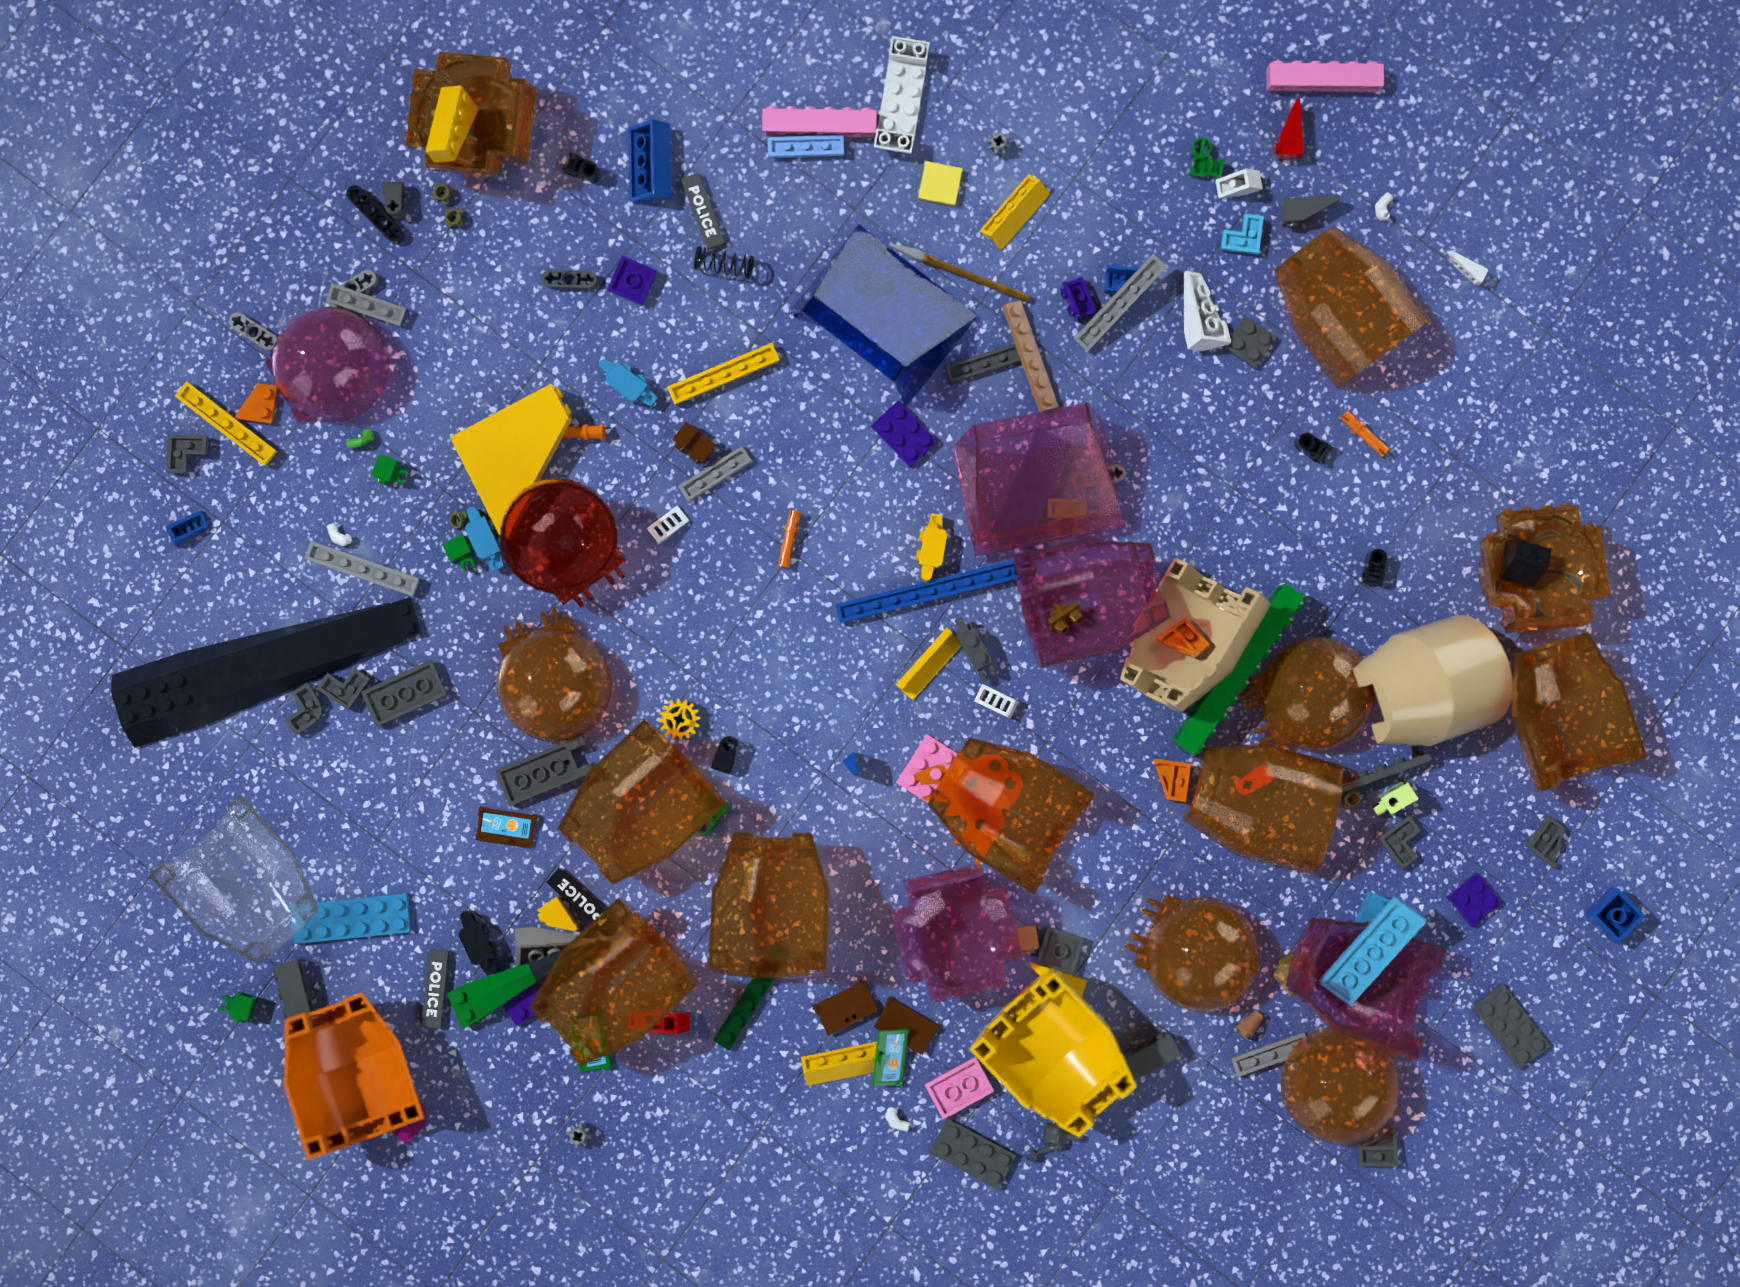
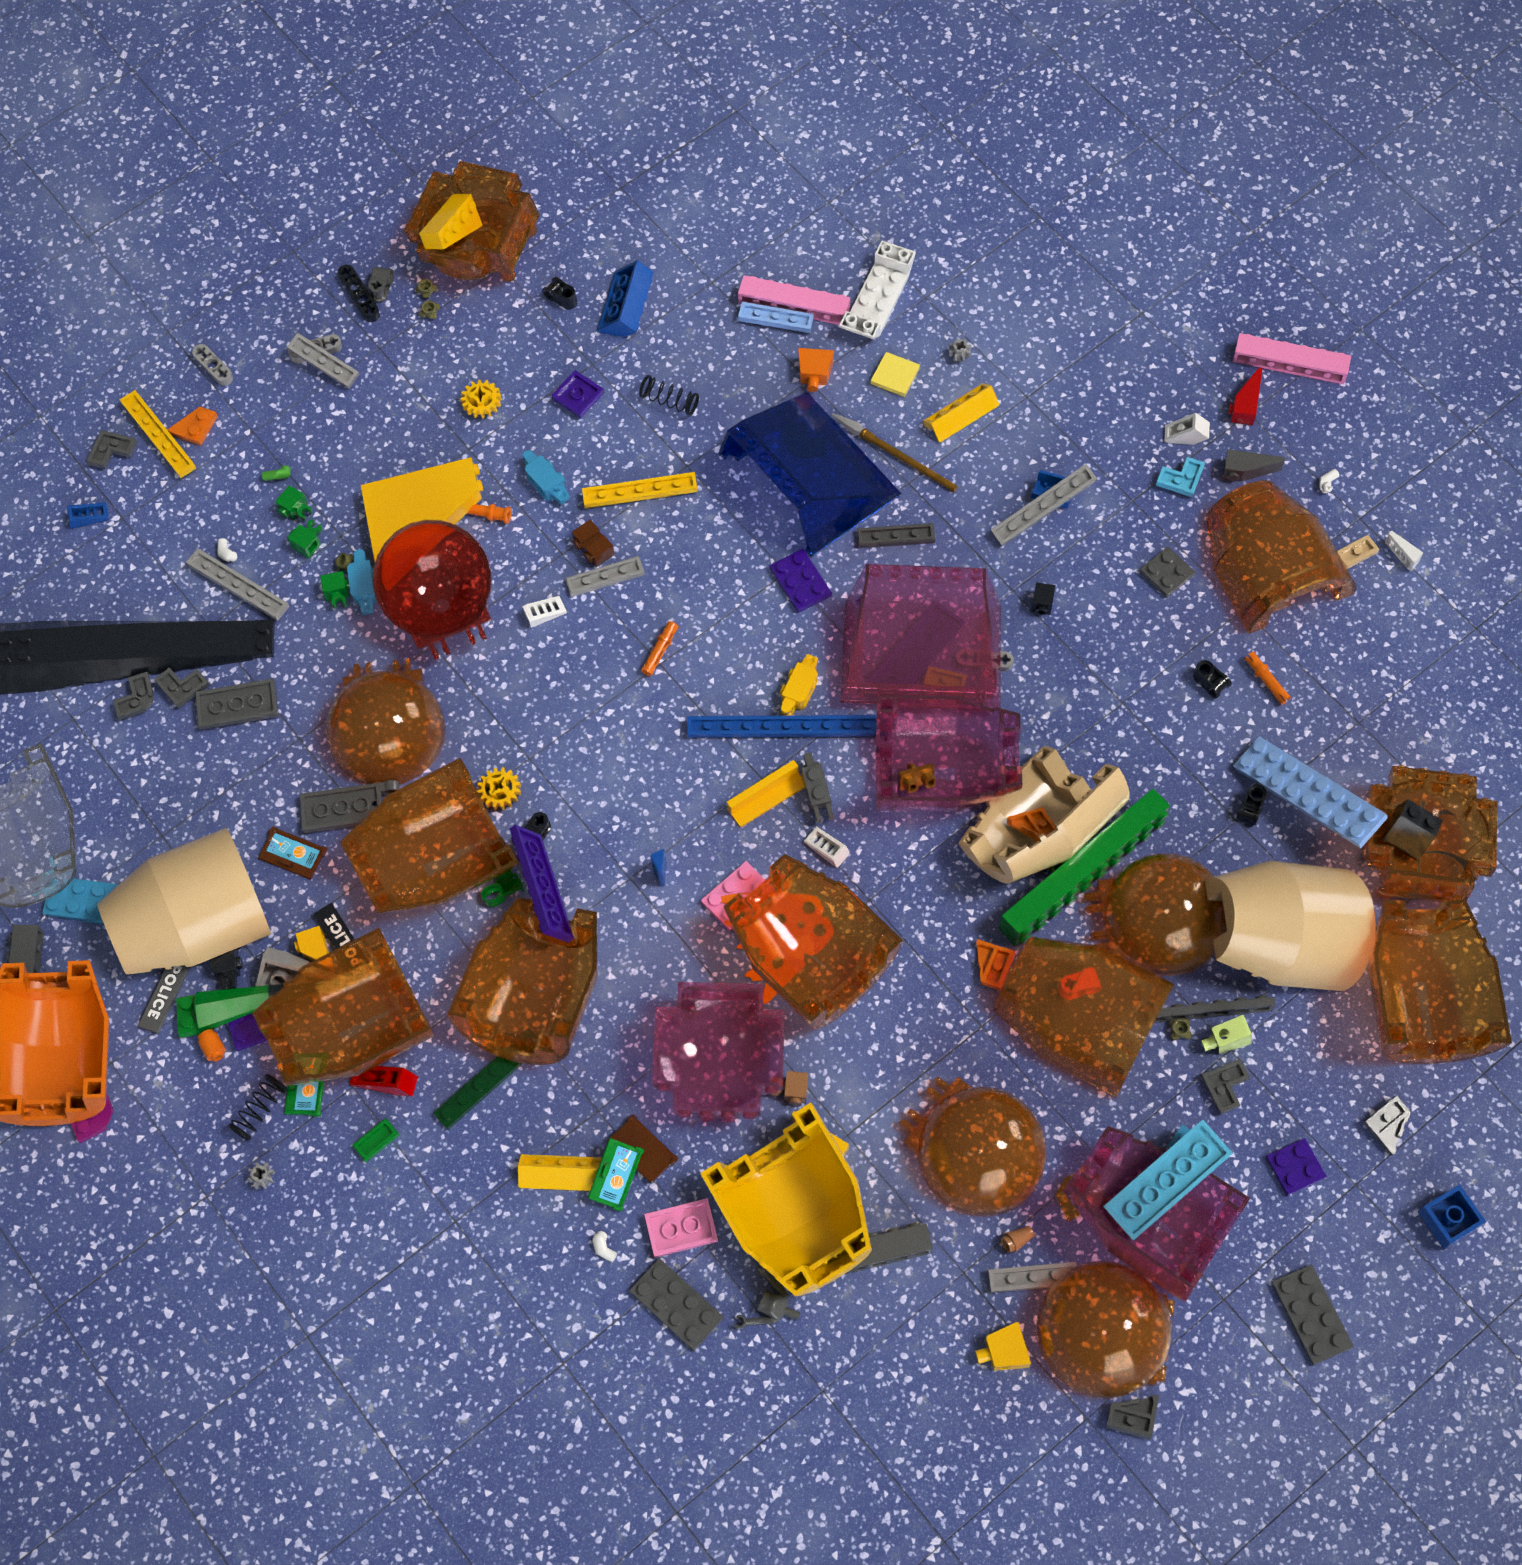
camera: 20 degrees right, 20 degrees down
(329, 364) = (270, 403): clear pink windscreen -> none
(412, 506) = (305, 540): none -> green brick
(425, 913) = (183, 907): none -> tan windscreen
(494, 1029) = (211, 1045): none -> orange brick
(531, 310) = (489, 402): none -> yellow gear
(541, 1099) = (279, 1086): none -> black piece
(555, 283) = (524, 388): dark grey beam -> none
(668, 1076) = (375, 1140): none -> green tile
(703, 211) = (662, 351): dark grey tile -> none
(751, 814) = (541, 883): none -> dark purple plate
(838, 1010) = (582, 1112): reddish brown door -> none
(859, 196) = (815, 367): none -> orange torso
(1030, 356) = (942, 526): medium nougat plate -> none
(1060, 950) = (832, 1107): dark grey plate -> none
(1078, 298) = (1004, 496): dark purple bracket -> none
(1139, 401) = (1043, 598): none -> black brick
(1201, 321) = (1122, 539): white wedge -> none
(1204, 165) = (1159, 411): green piece -> none
(1260, 1122) = (1005, 1349): none -> yellow torso
(1425, 279) = (1358, 551): none -> tan plate
(1428, 551) = (1310, 792): none -> light blue plate

